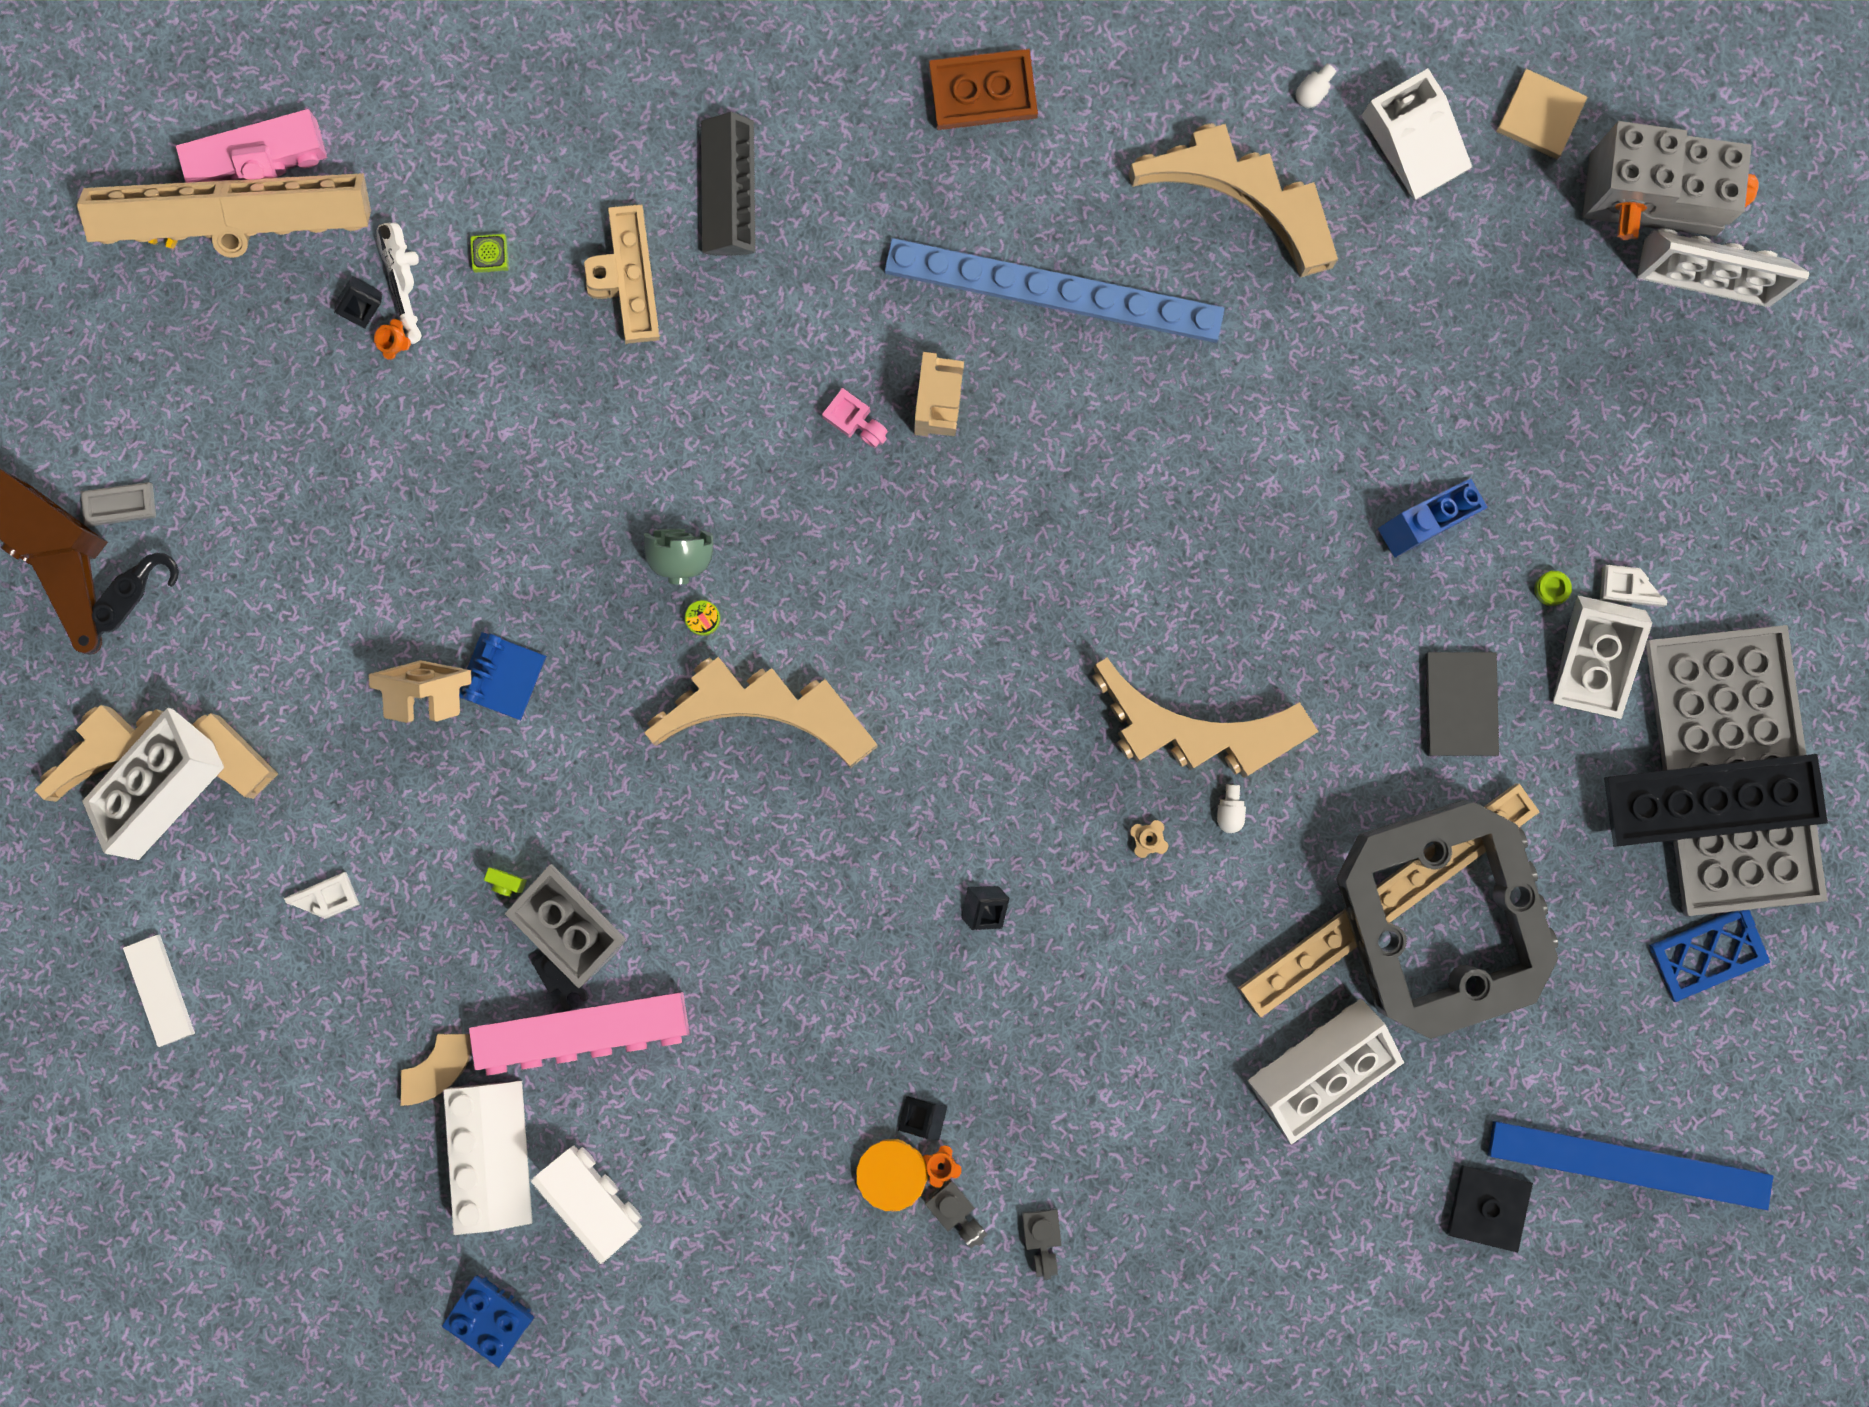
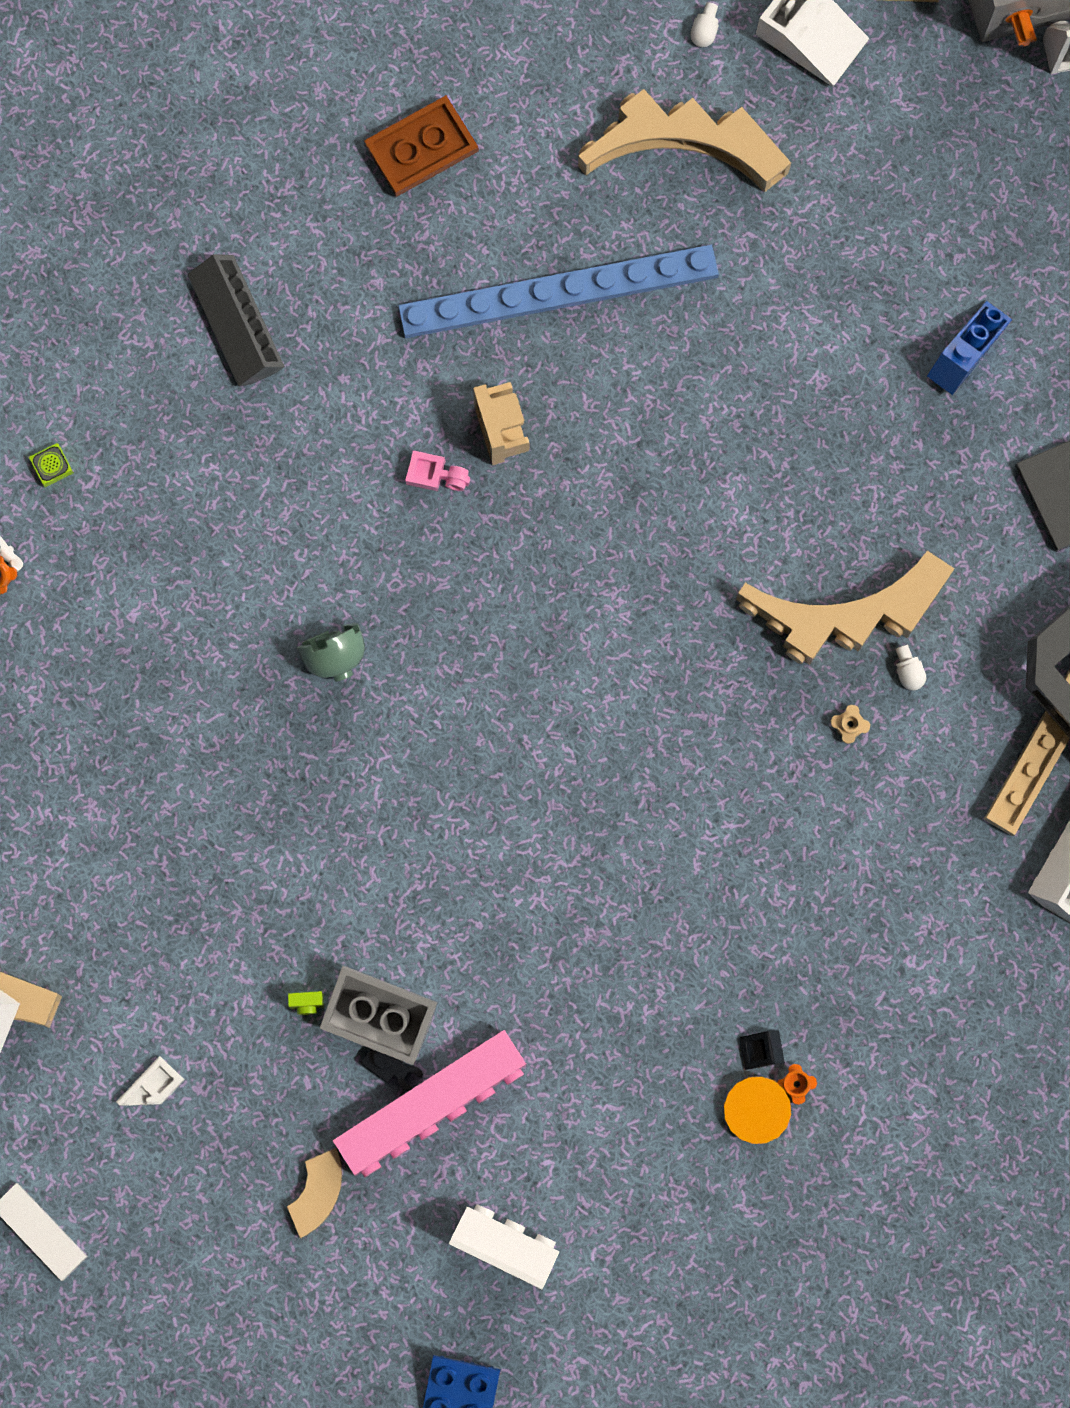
camera: 20 degrees left, 5 degrees down
(420, 680) = (145, 864): tan panel -> none
(487, 1157) = (397, 1247): white slope -> none
(502, 675) = (223, 825): blue hinge -> none
(627, 274) = (181, 432): tan plate -> none
(702, 618) = (378, 700): tile -> none
(722, 696) = (425, 758): tan arch -> none
(952, 1207) = (821, 1116): dark grey plate -> none
(985, 907) = (735, 844): black slope -> none
(1041, 1232) = (909, 1102): dark grey plate -> none

